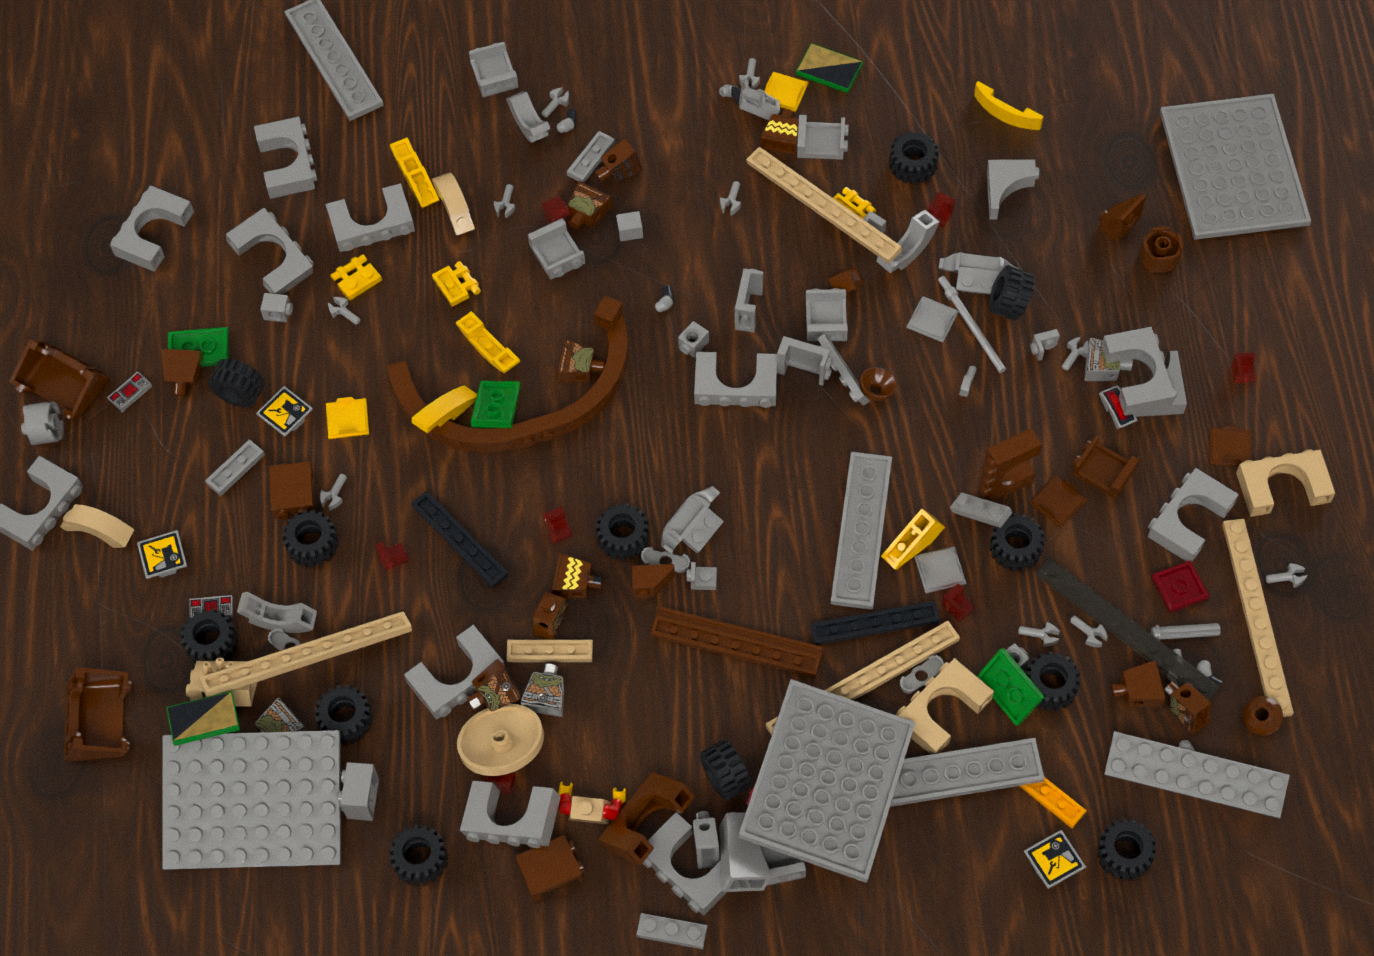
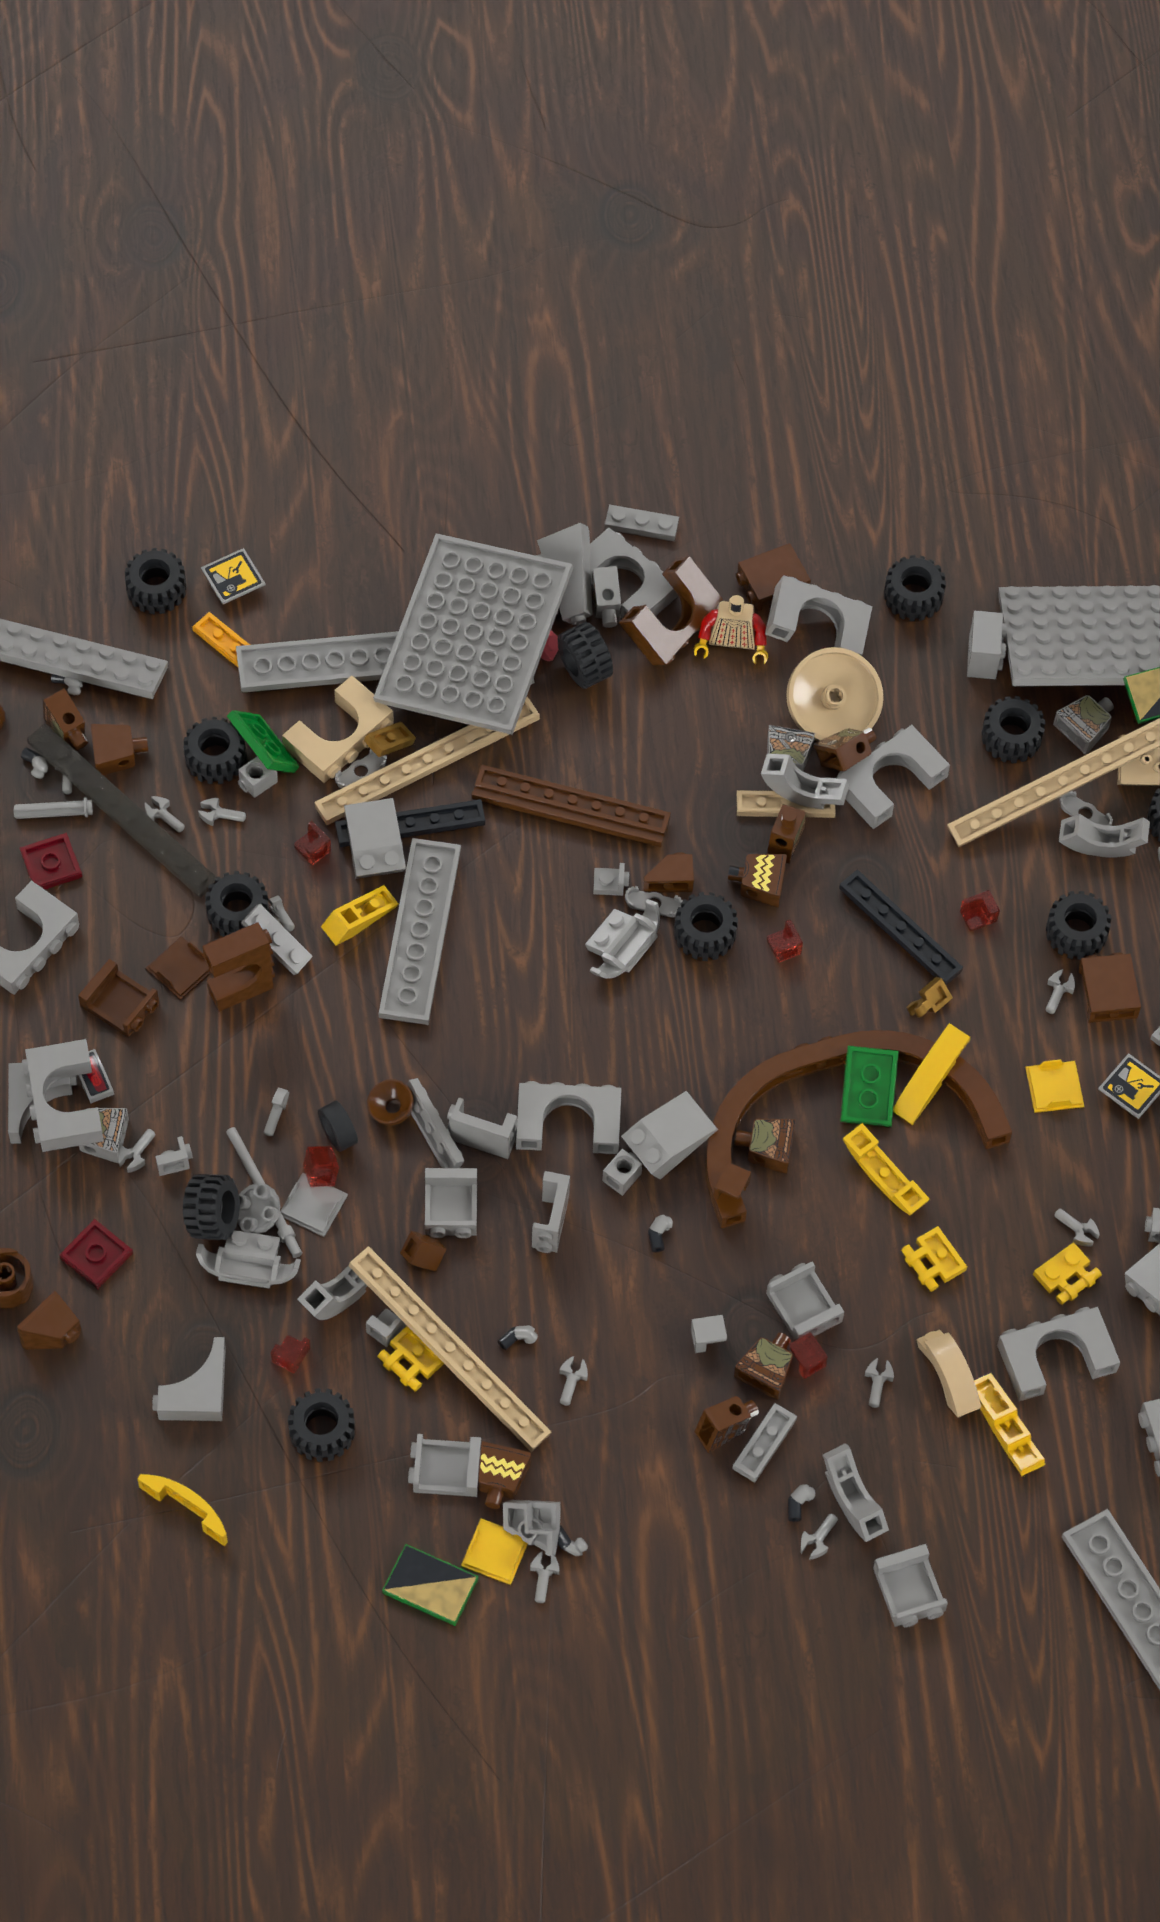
camera: 175 degrees right, 0 degrees up
(439, 479) = (933, 998): none -> pearl gold plate
(533, 651) = (799, 787): none -> light grey arch
(657, 358) = (669, 1134): none -> light grey slope
(771, 227) = (517, 1333): none -> arm
(898, 694) = (389, 739): none -> pearl gold plate
(904, 596) = (374, 838): none -> light grey slope
(918, 361) = (337, 1126): none -> black tyre
(929, 337) = (321, 1166): none -> clear red panel
(940, 569) = (328, 888): light grey piece -> none
(975, 306) = (258, 1208): none -> light grey dish
(983, 546) = (280, 913): none -> light grey bar
(1095, 278) = (96, 1254): none -> dark red tile

